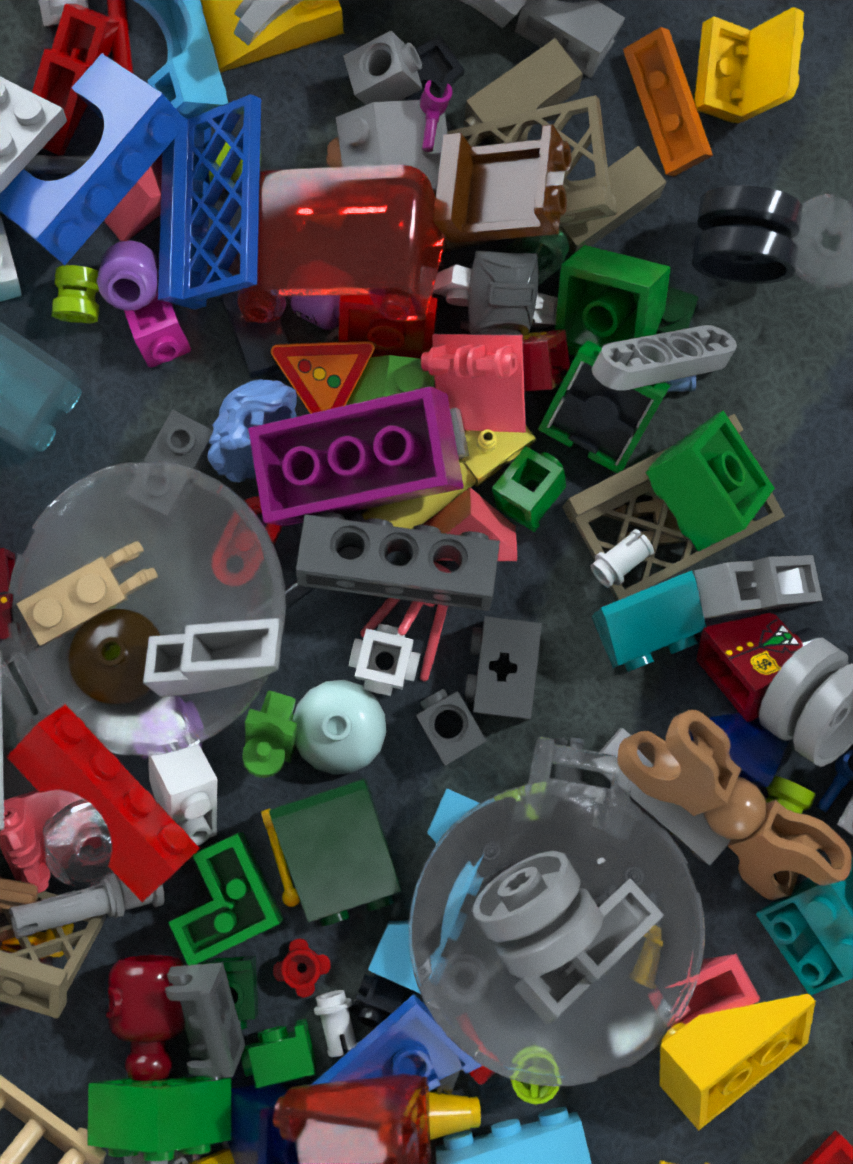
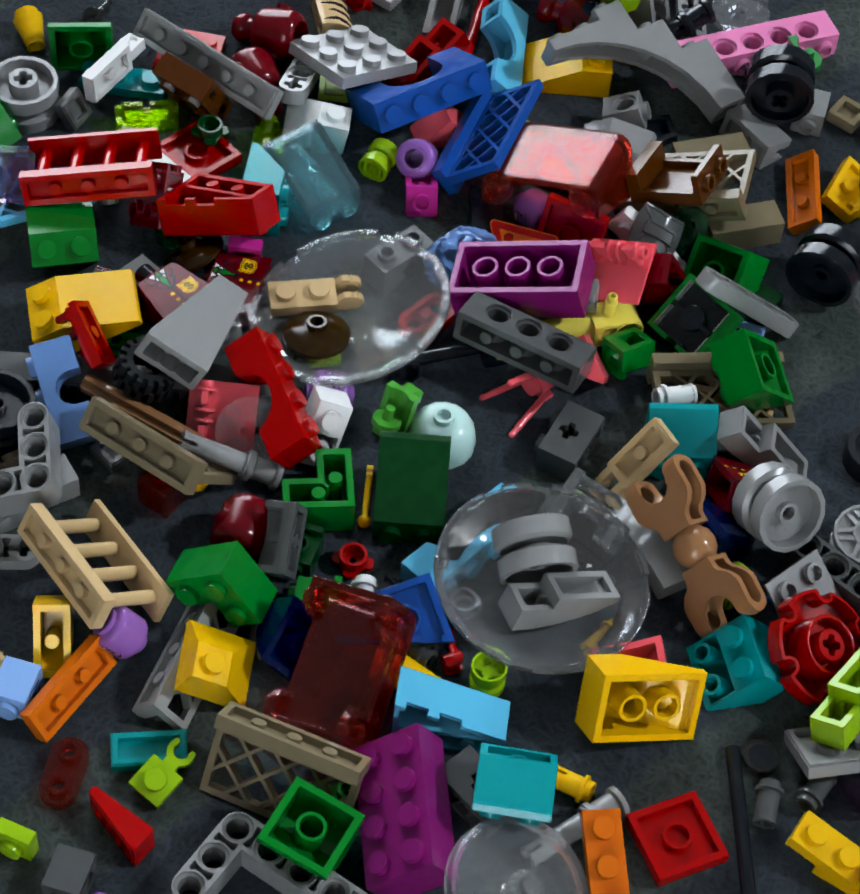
camera: 20 degrees right, 30 degrees down
(212, 656) = (381, 334): light grey slope -> none
(384, 641) = (491, 403): white brick -> none
(433, 108) = (649, 131): magenta hand -> none
(453, 748) = (525, 467): dark grey brick -> none
(611, 682) = (638, 457): none -> tan hinge

